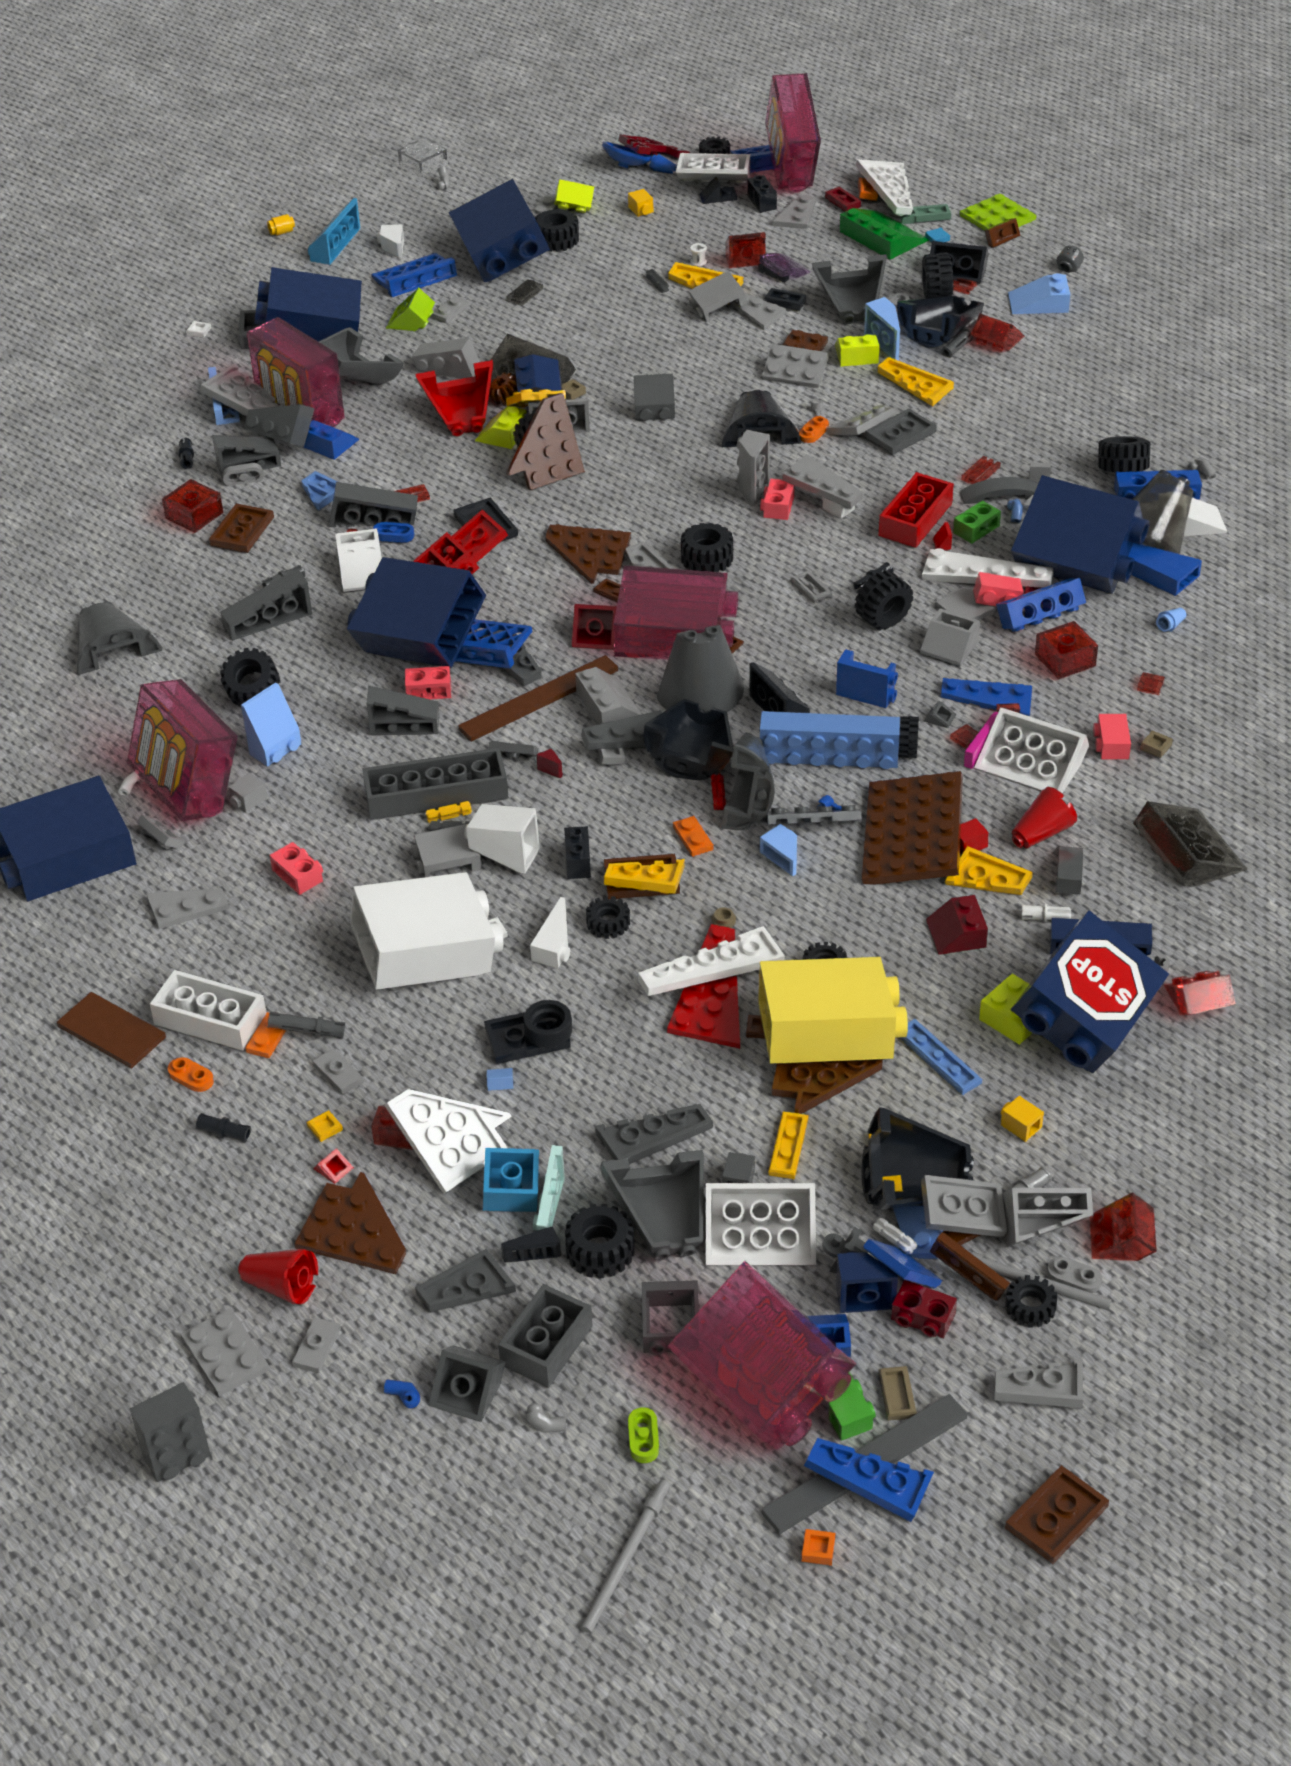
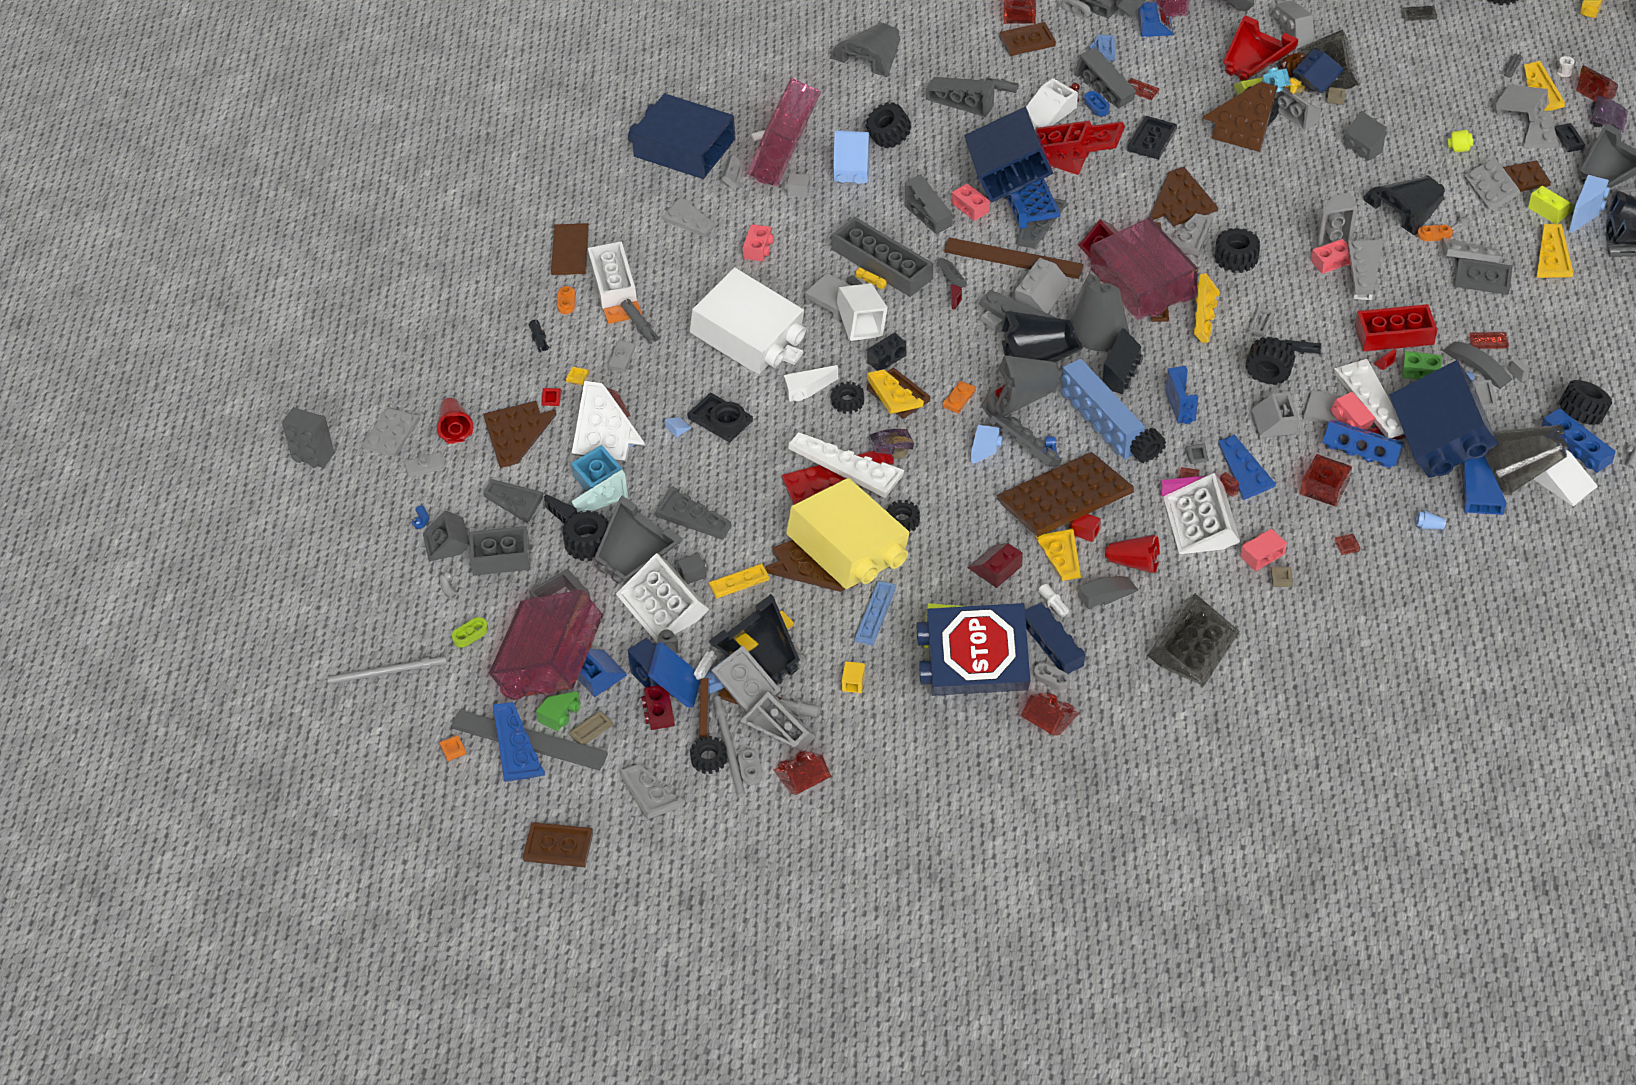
camera: 55 degrees right, 5 degrees up
(541, 390) = (1277, 77): none -> medium azure brick
(711, 914) = (888, 440): none -> slope
(720, 353) = (1460, 141): none -> neon yellow head
(764, 607) = (1205, 303): none -> yellow wing

